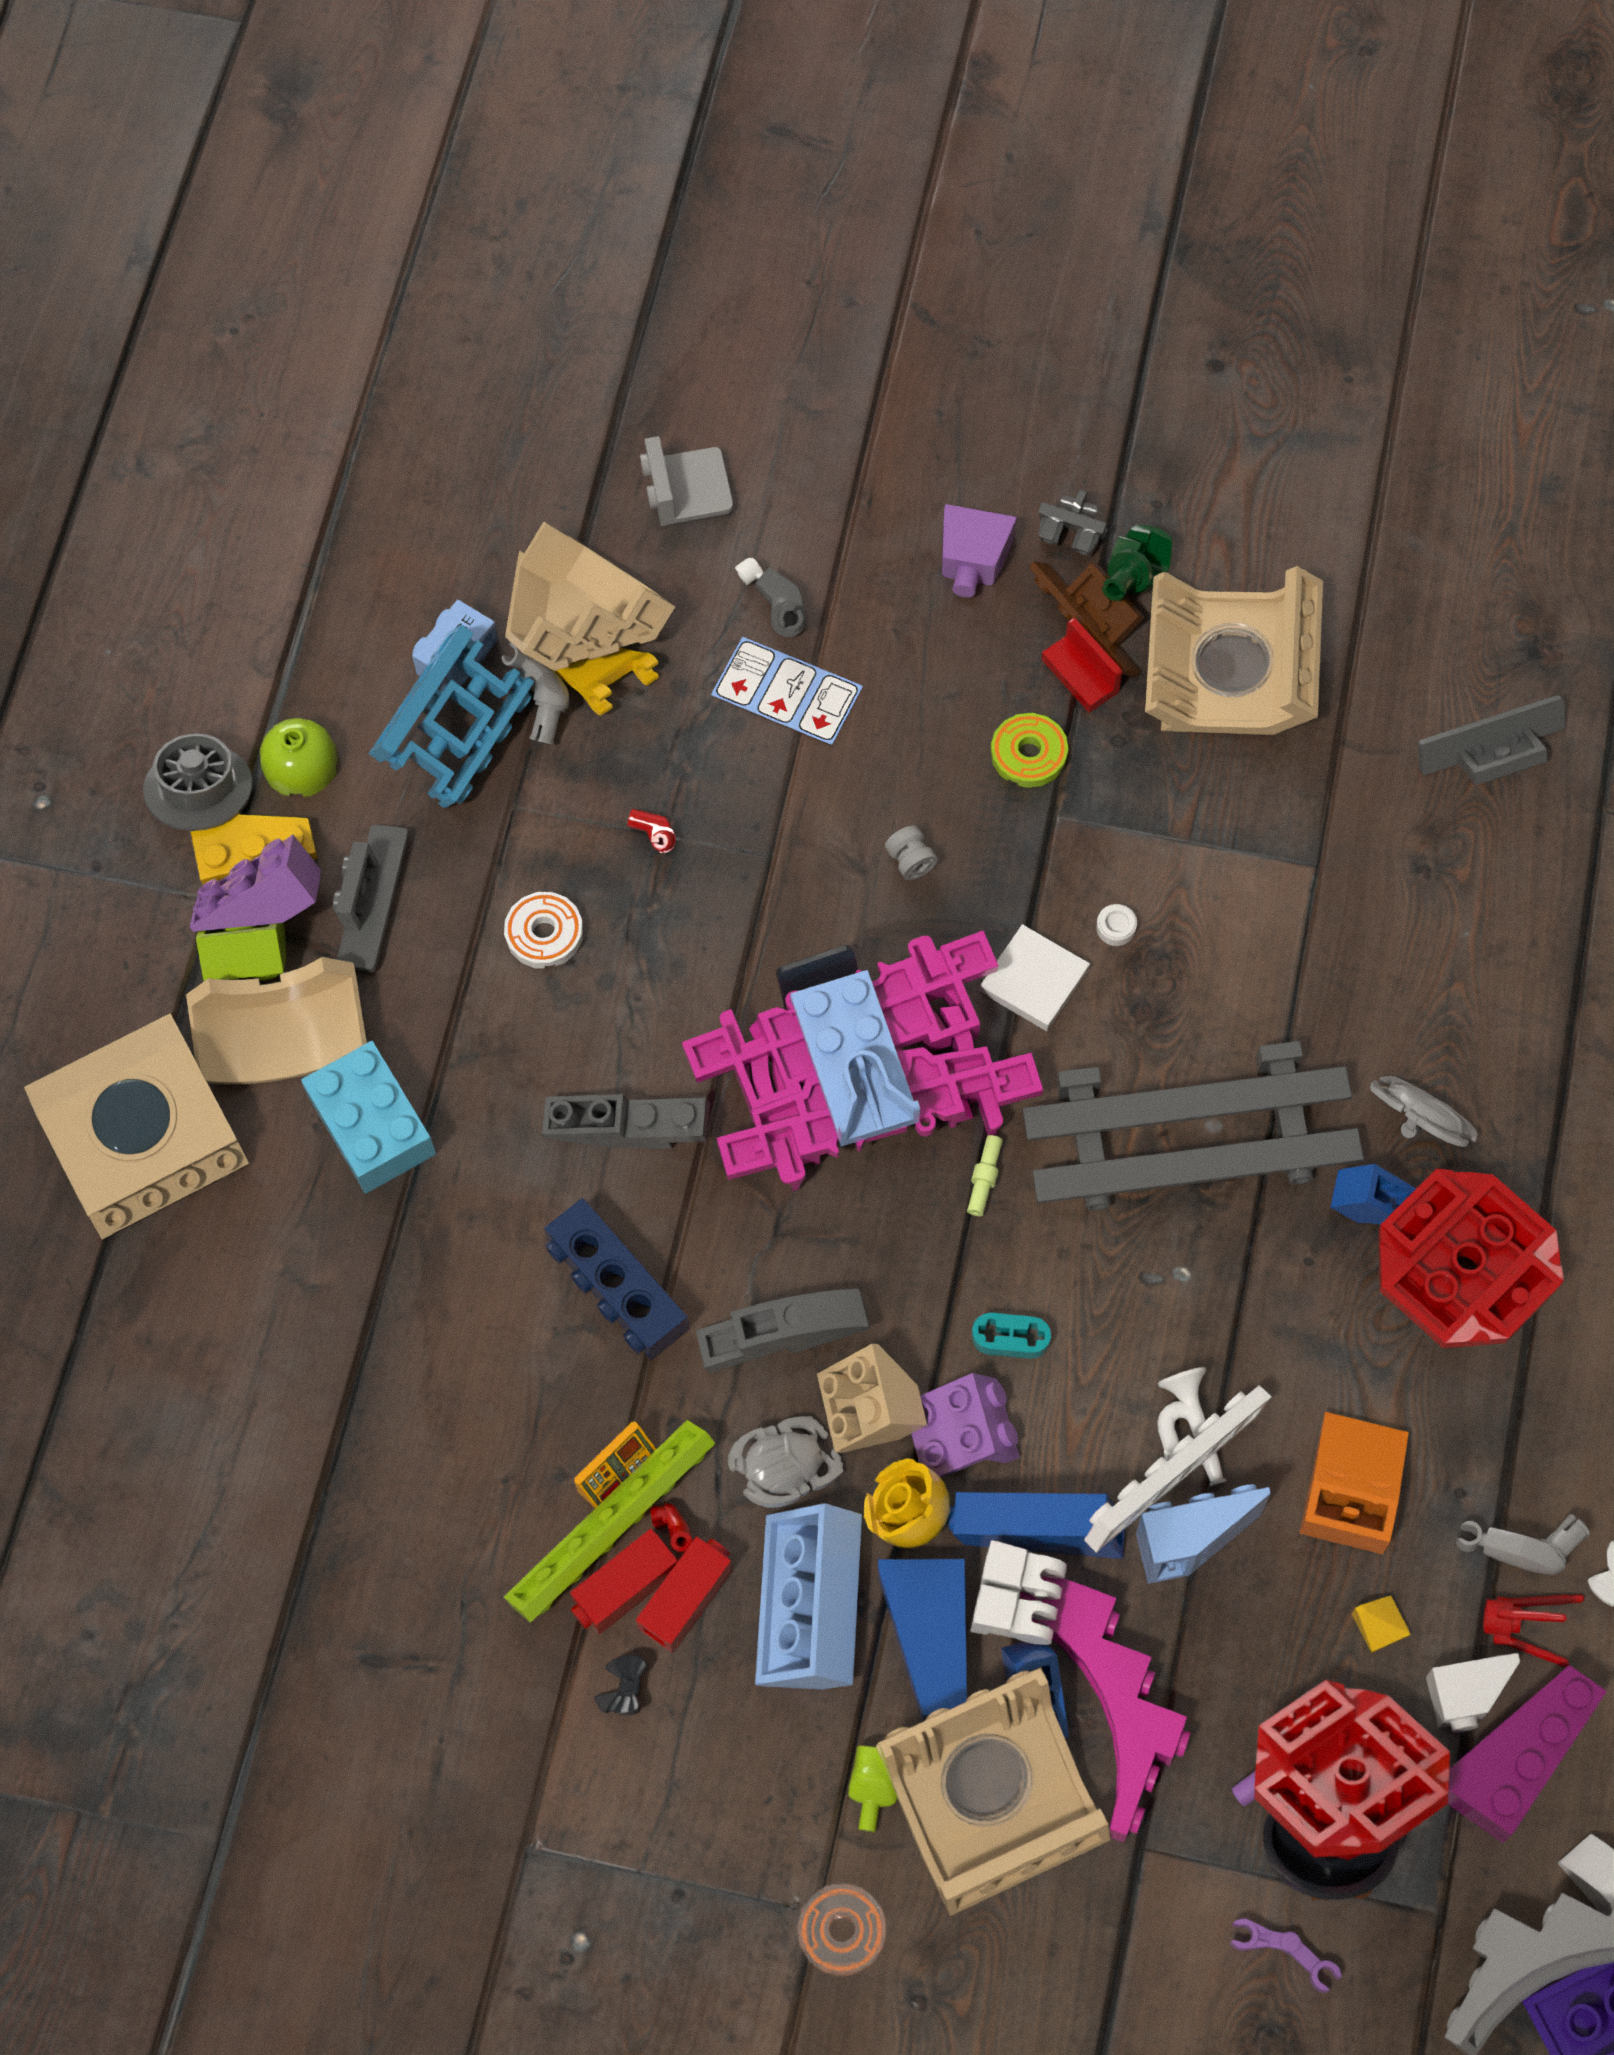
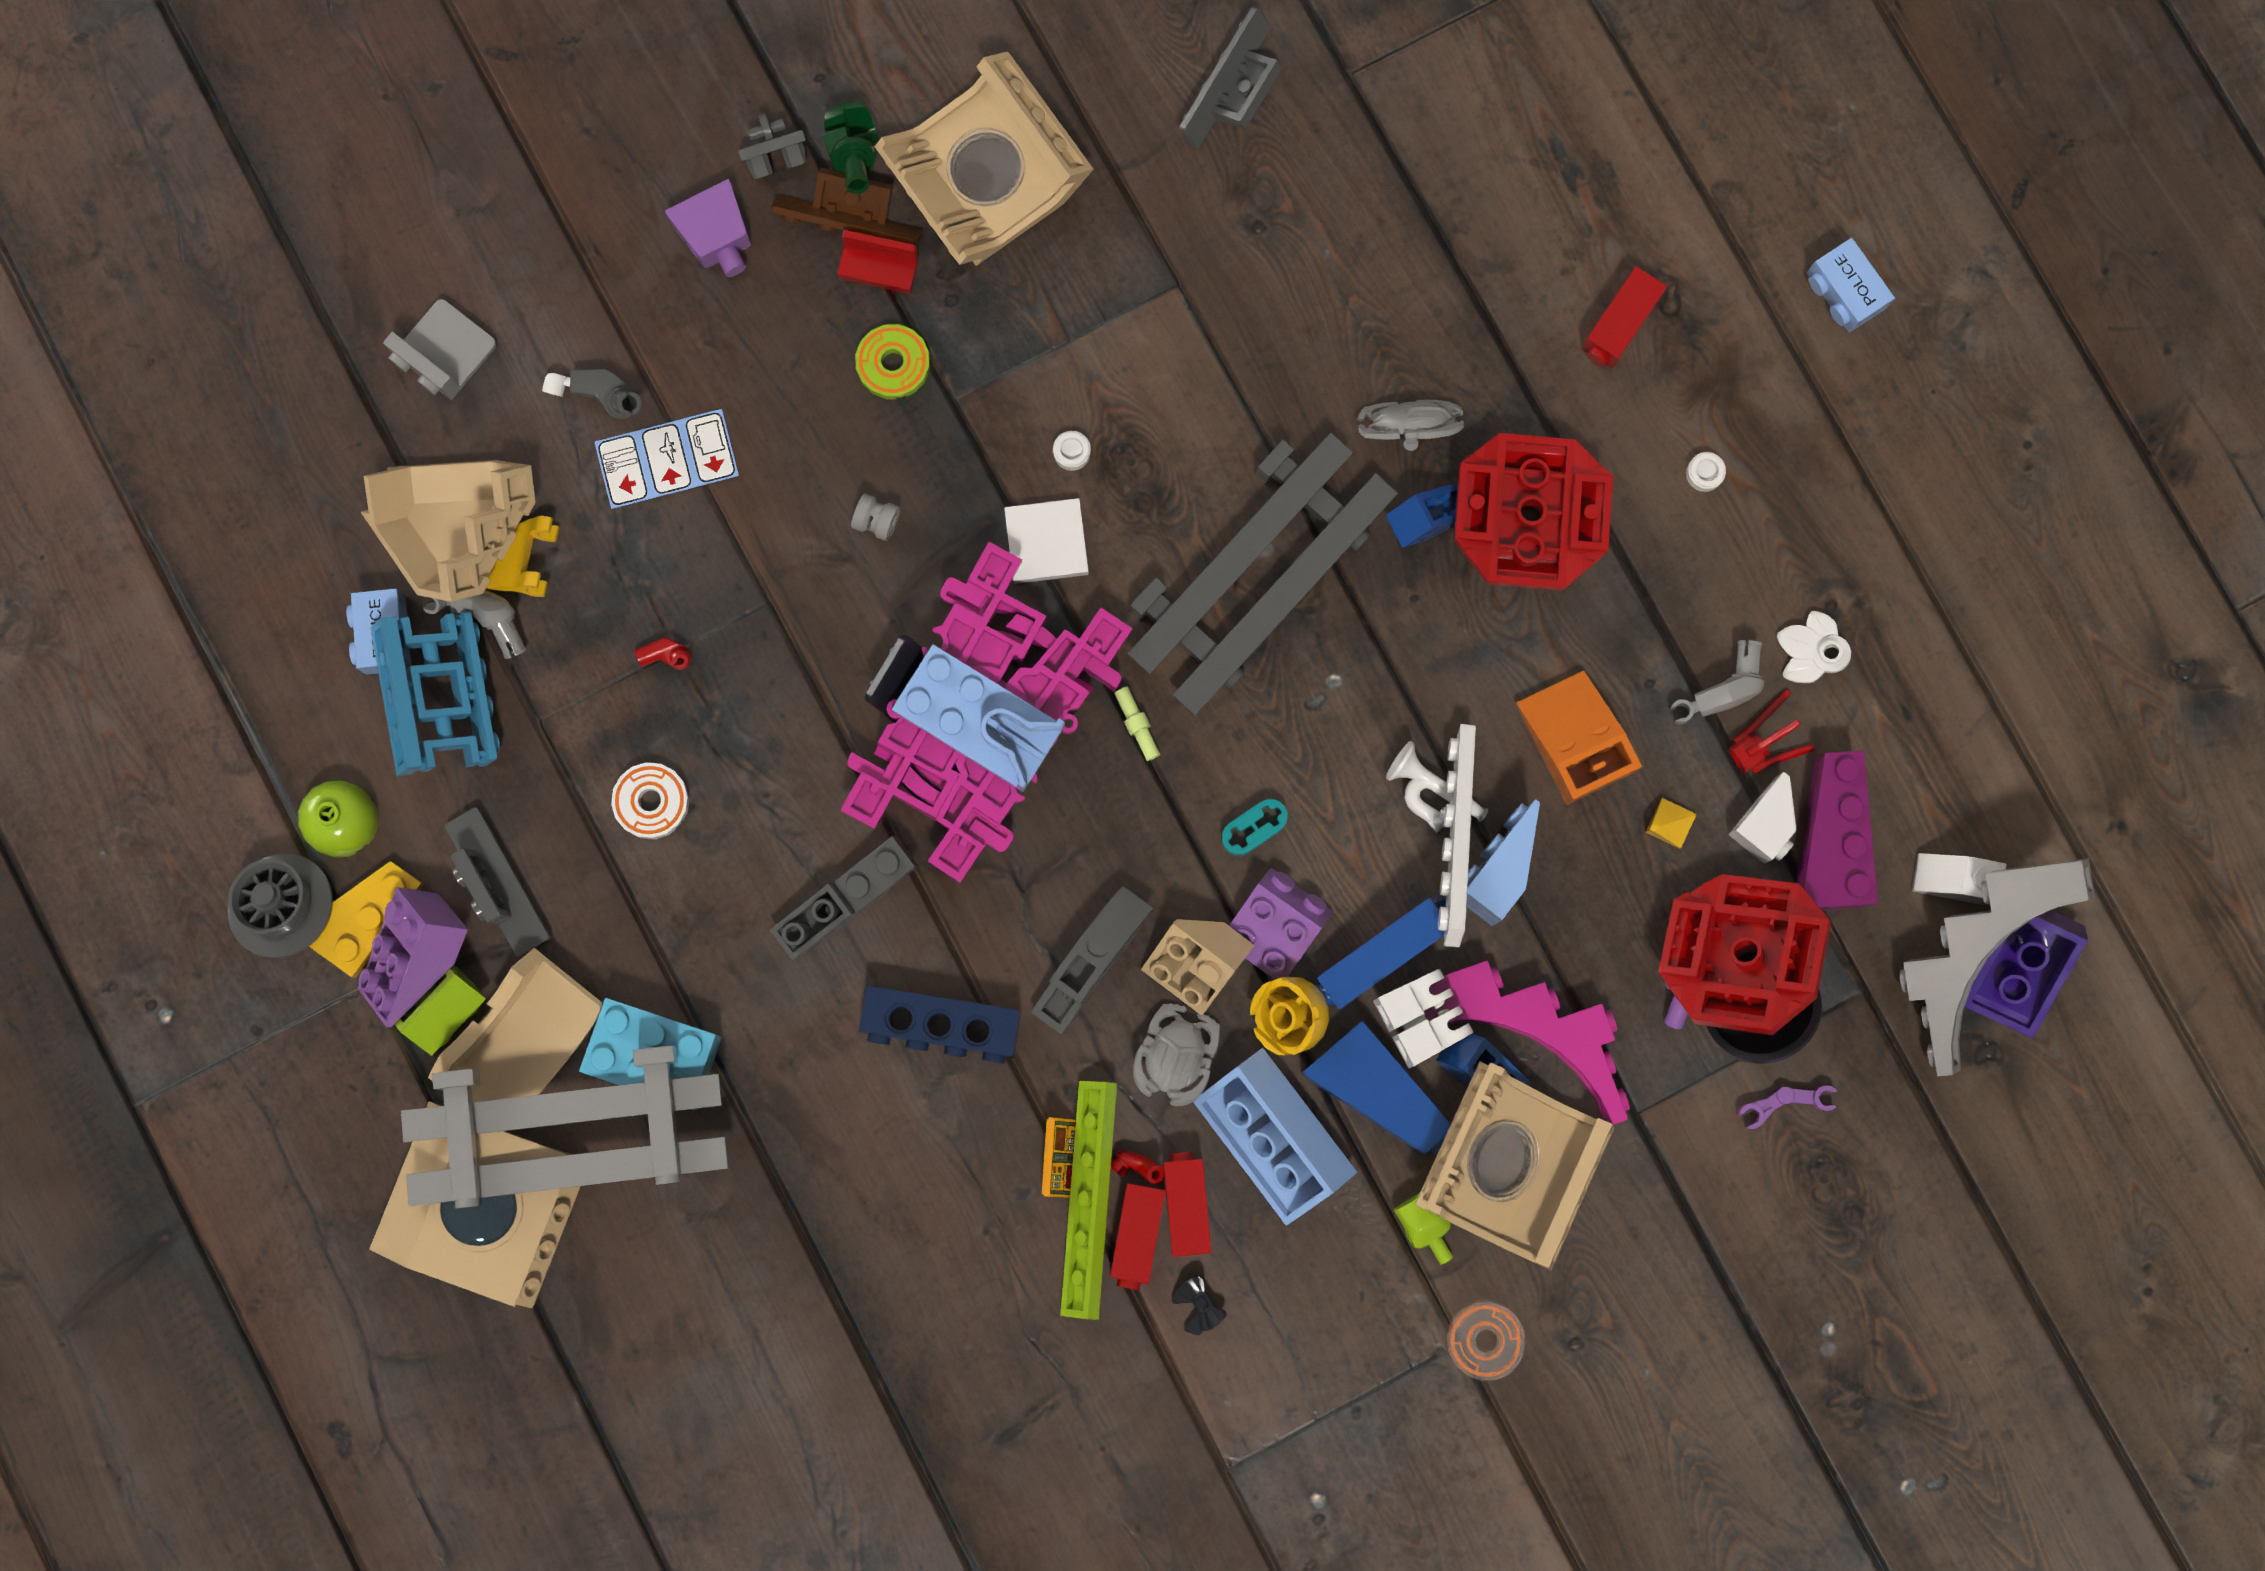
camera: 45 degrees left, 15 degrees up
(336, 1142) = (463, 1119): none -> light grey fence

